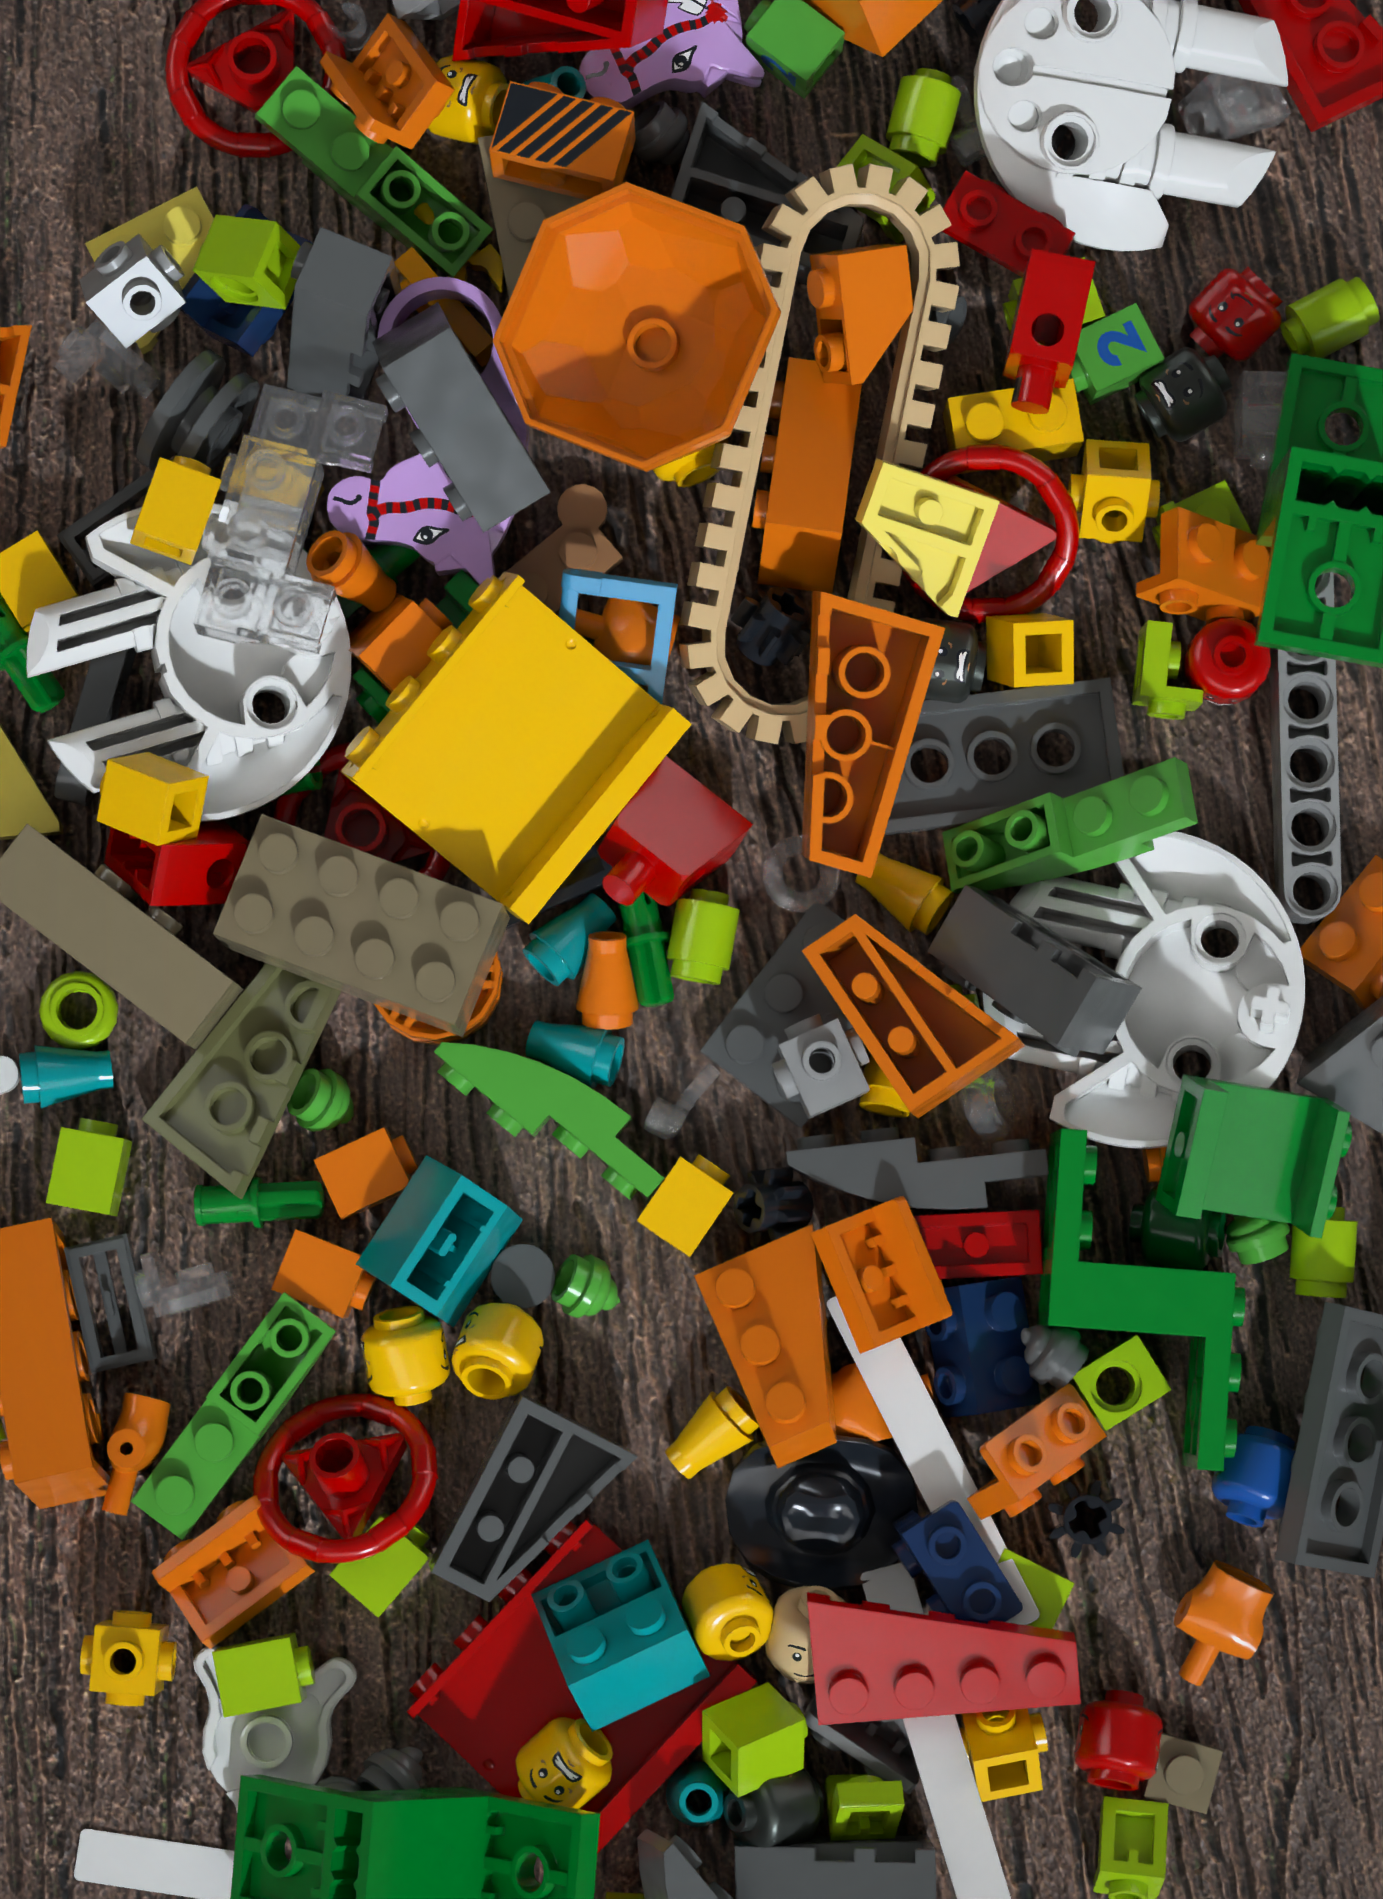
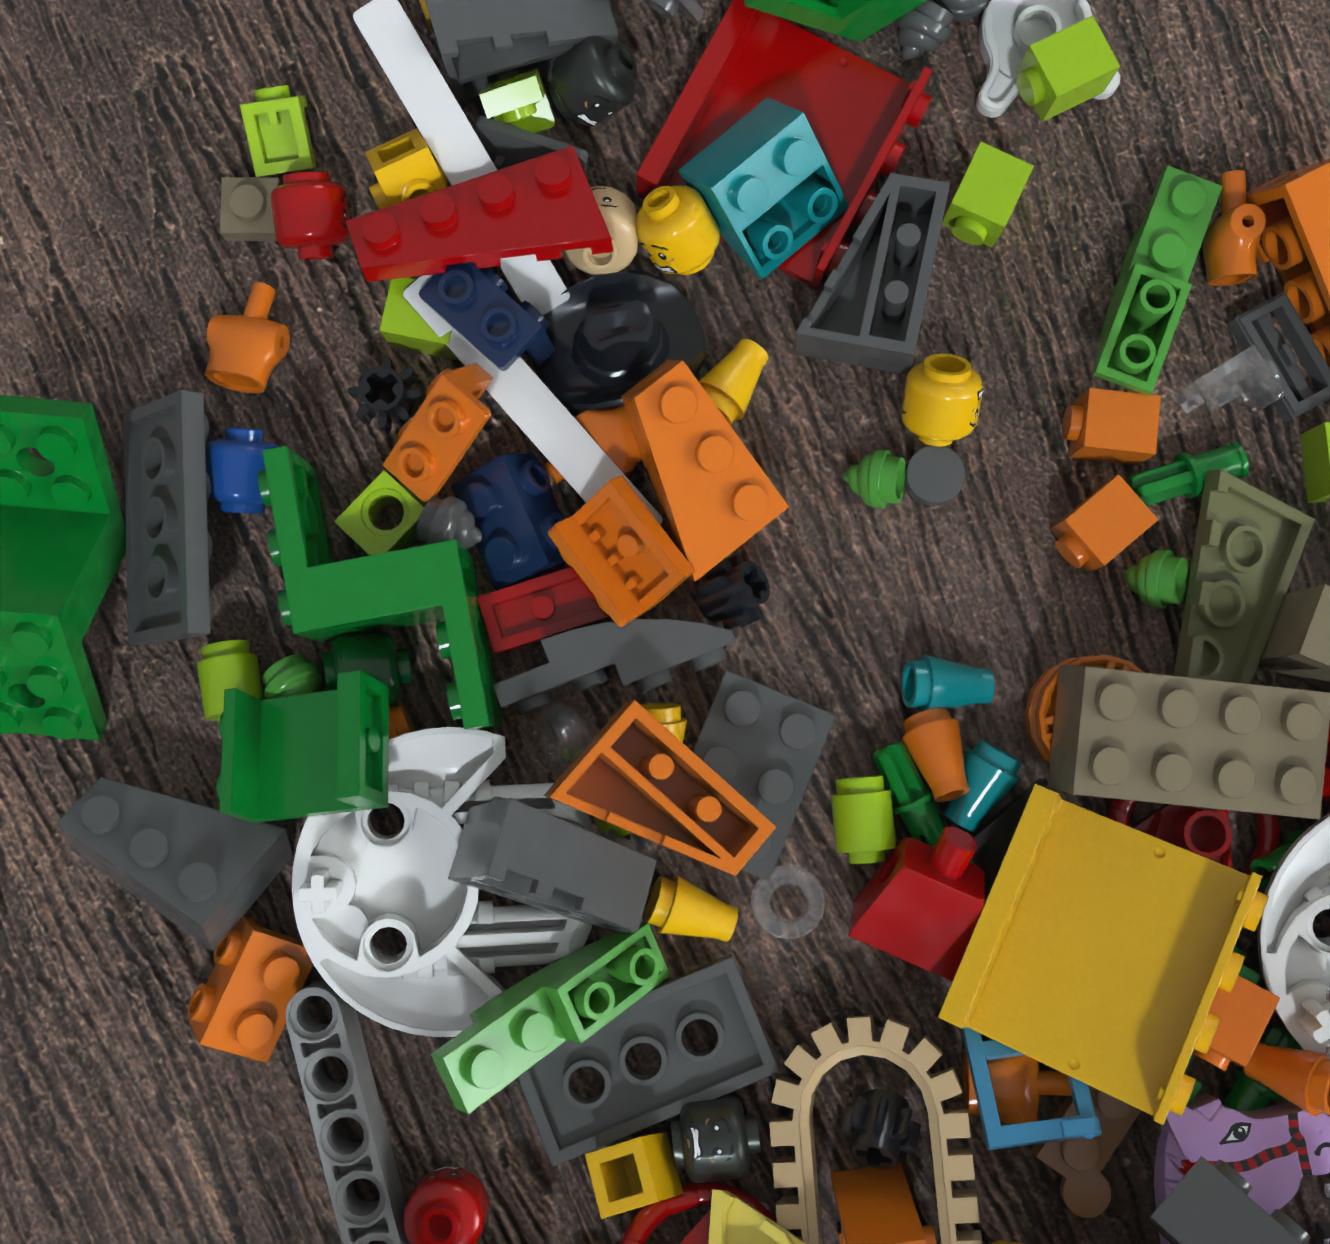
camera: 170 degrees right, 0 degrees up
(147, 1642) = (1180, 58): yellow brick -> none
(229, 1573) = (1112, 157): orange bracket -> none
(346, 1477) = (1041, 253): red piece -> none
(405, 1355) = (1020, 376): yellow head -> none
(440, 1240) = (1023, 475): teal slope -> none
(532, 1093) = (973, 635): bright green slope -> none
(564, 1764) = (782, 63): yellow head -> none
(666, 1118) = (845, 647): clear hand -> none
(687, 1203) = (810, 573): yellow brick -> none
(689, 1778) = (659, 75): teal cone -> none
(753, 1738) = (625, 124): lime brick -> none
(821, 1090) = (723, 701): light grey brick -> none
(861, 718) = (779, 1077): orange wedge -> none
(1155, 663) = (513, 1192): lime bracket -> none

